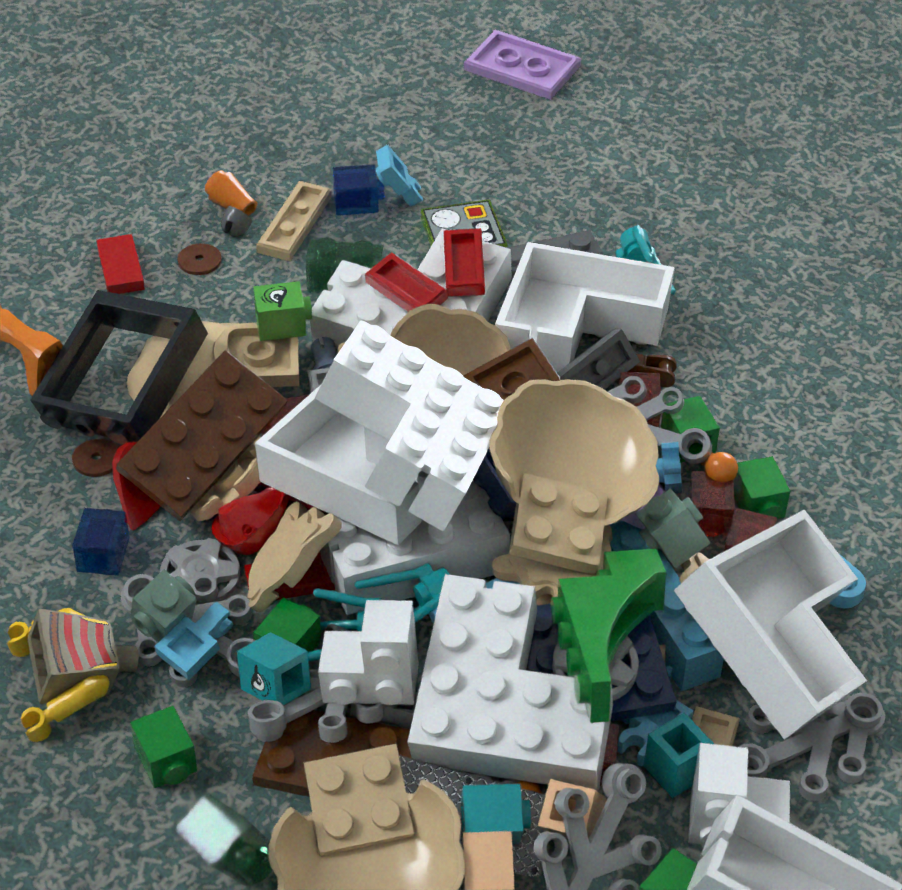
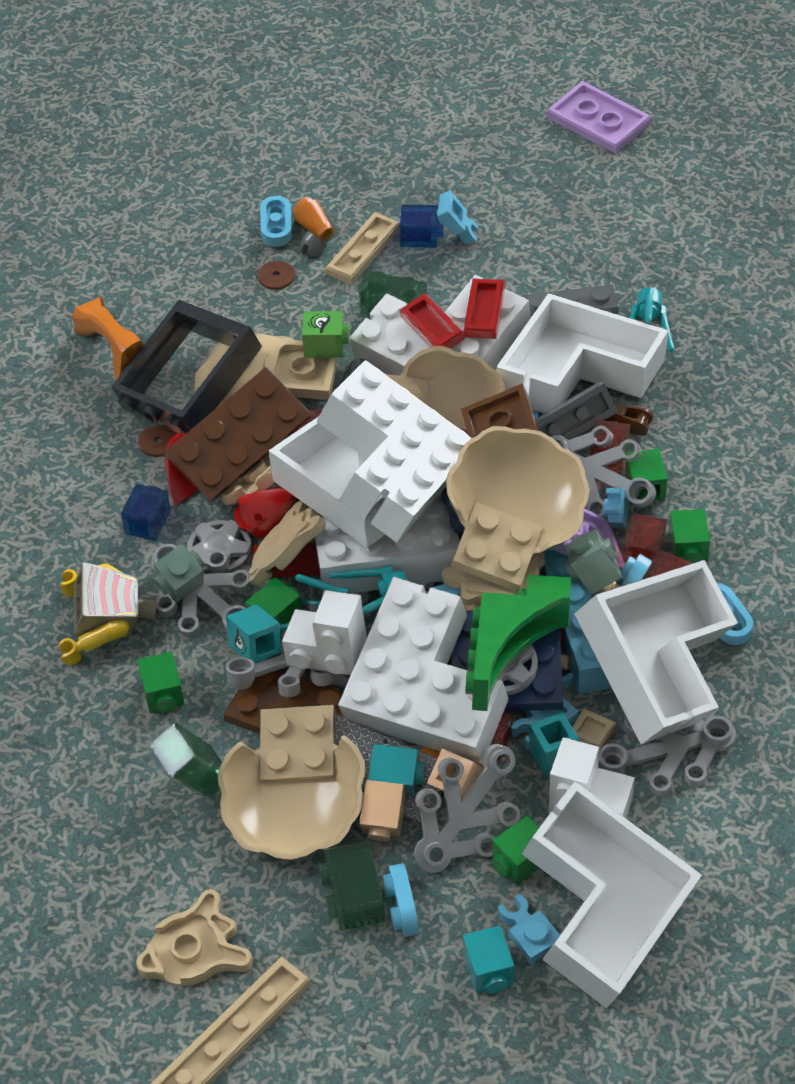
camera: 15 degrees right, 5 degrees up
(120, 264) = (209, 273): red tile -> none
(187, 201) = (276, 221): none -> medium azure plate
(194, 644) = (197, 605): medium azure plate -> none
(464, 216) = (509, 264): tile -> none
(720, 533) = (634, 570): none -> medium azure plate
(721, 467) = (657, 512): orange bar -> none

